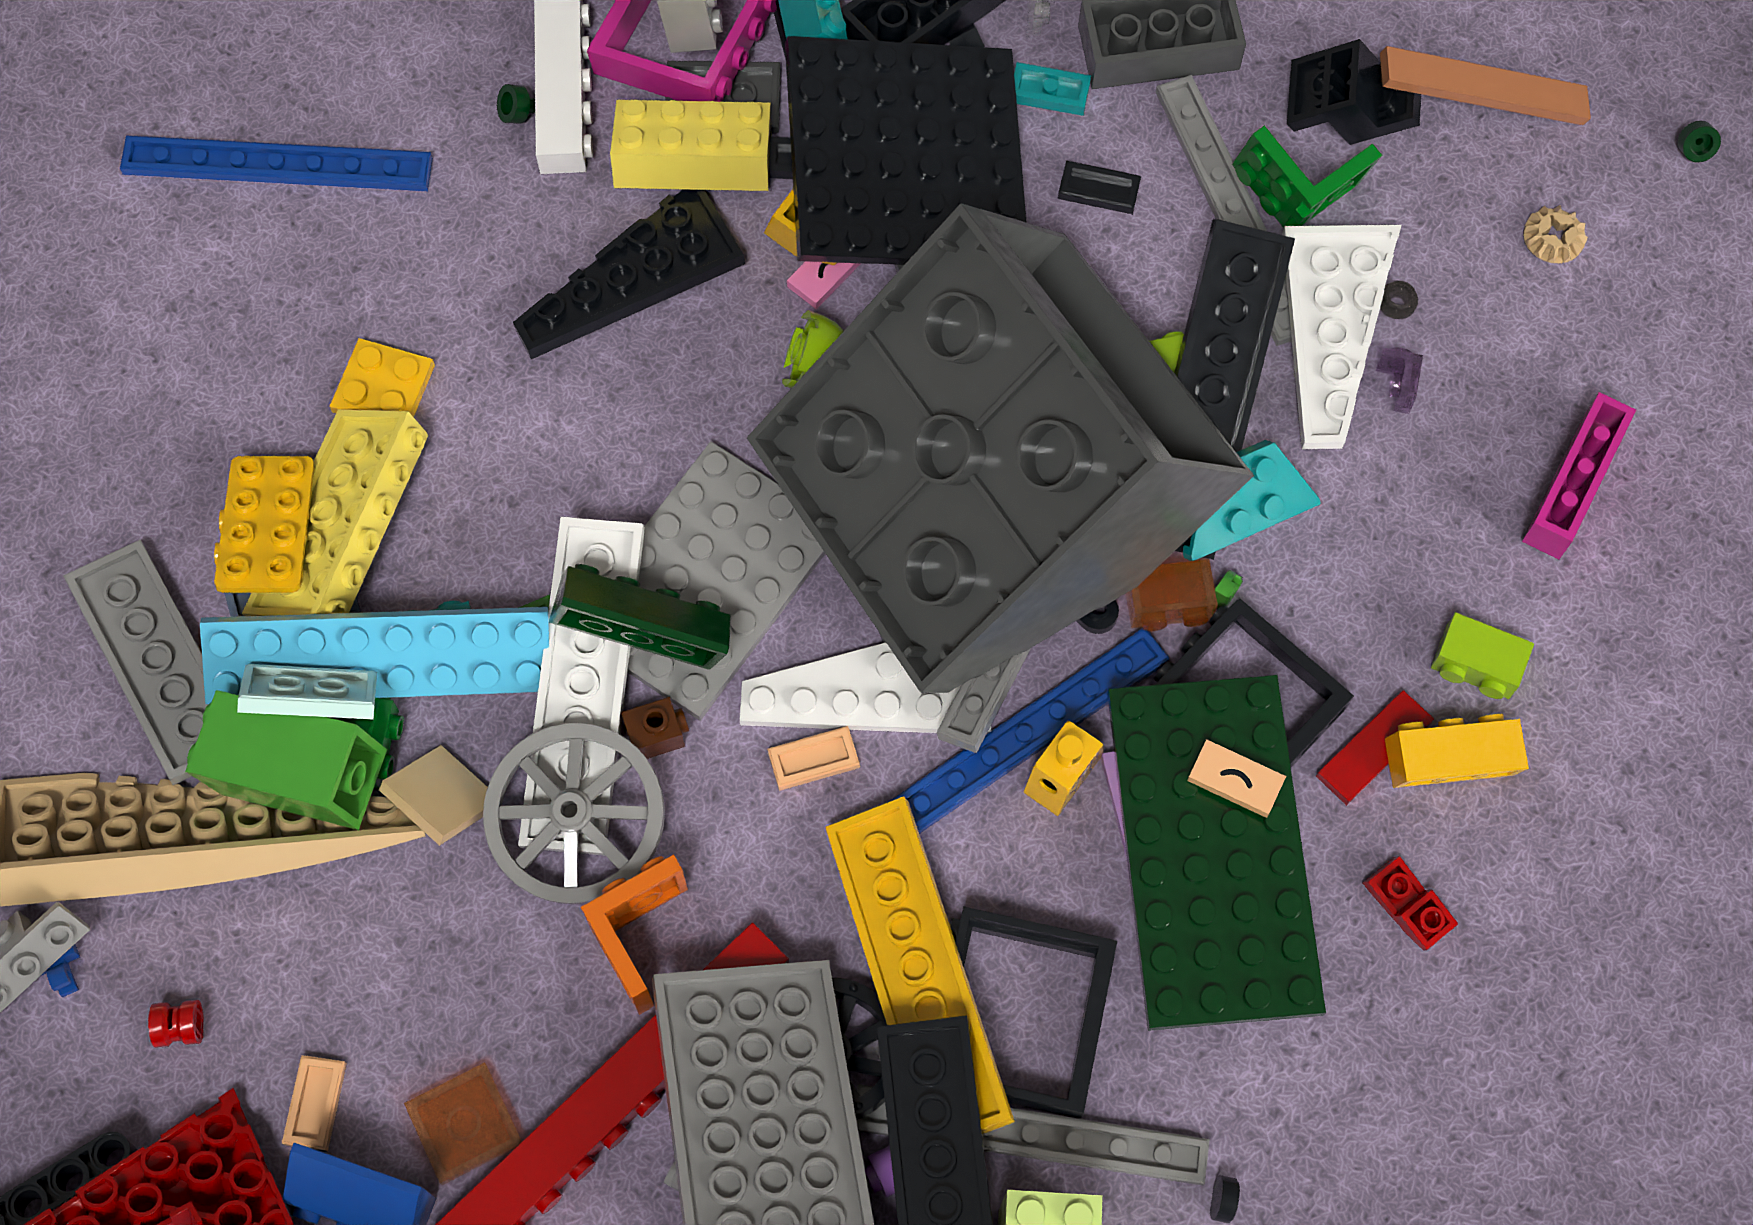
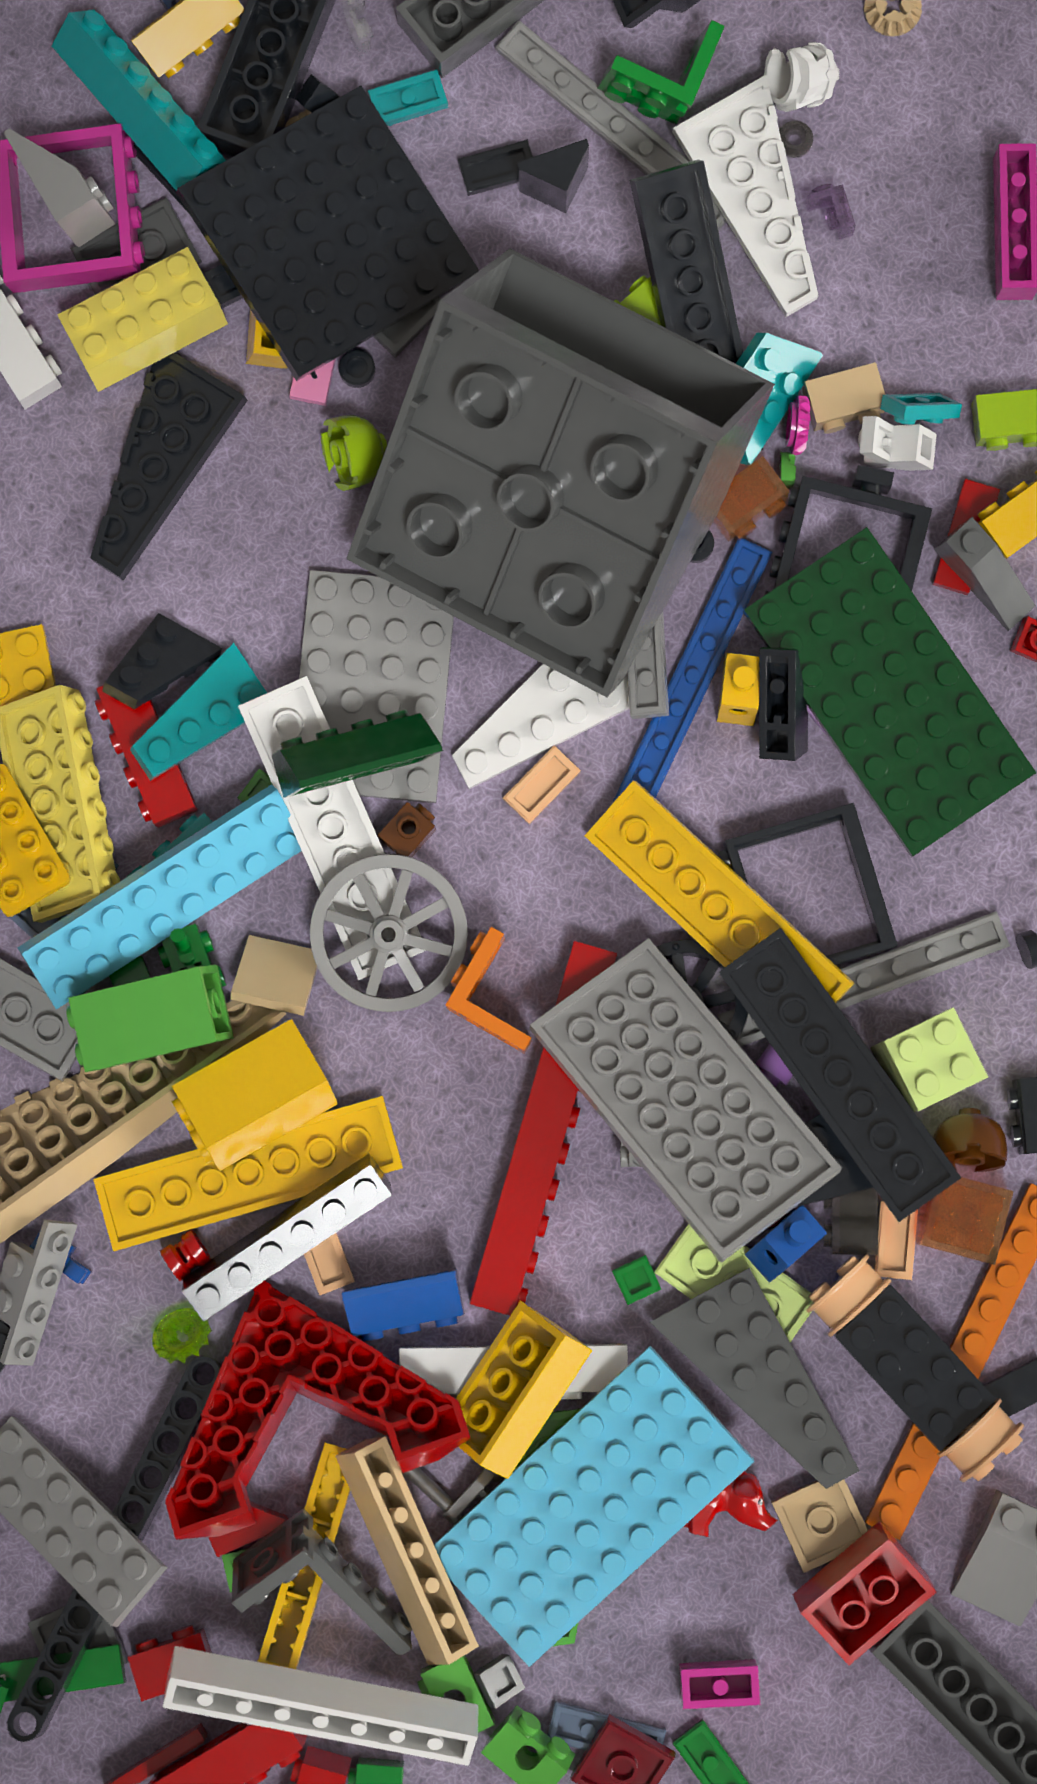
camera: 25 degrees left, 15 degrees up
(100, 1099) = (165, 1337): none -> clear neon green gear
(282, 1059) = (286, 1237): none -> brick
(291, 977) = (190, 1193): none -> yellow plate
(307, 691) = (139, 959): light aqua tile -> none
(338, 895) = (253, 1096): none -> yellow brick
(453, 519) = (165, 796): none -> red brick
(463, 1123) = (443, 1206): clear orange tile -> none
(513, 439) = (158, 659): none -> black wing
(518, 512) = (200, 715): none -> teal wing
(862, 289) = (357, 368): none -> black tile
(1095, 802) = (781, 705): none -> black slope
(1149, 211) = (554, 174): none -> black slope
(1236, 778) = (880, 630): light nougat tile -> none
(1260, 550) = (798, 424): none -> dark pink gear
(1309, 640) = (872, 480): none -> black plate
(1321, 551) = (844, 397): none -> tan brick
(1349, 623) = (896, 446): none -> white brick
(1377, 788) = (987, 572): none -> dark grey slope
(1403, 603) = (923, 406): none -> teal plate
(1434, 248) = (802, 80): none -> white helmet

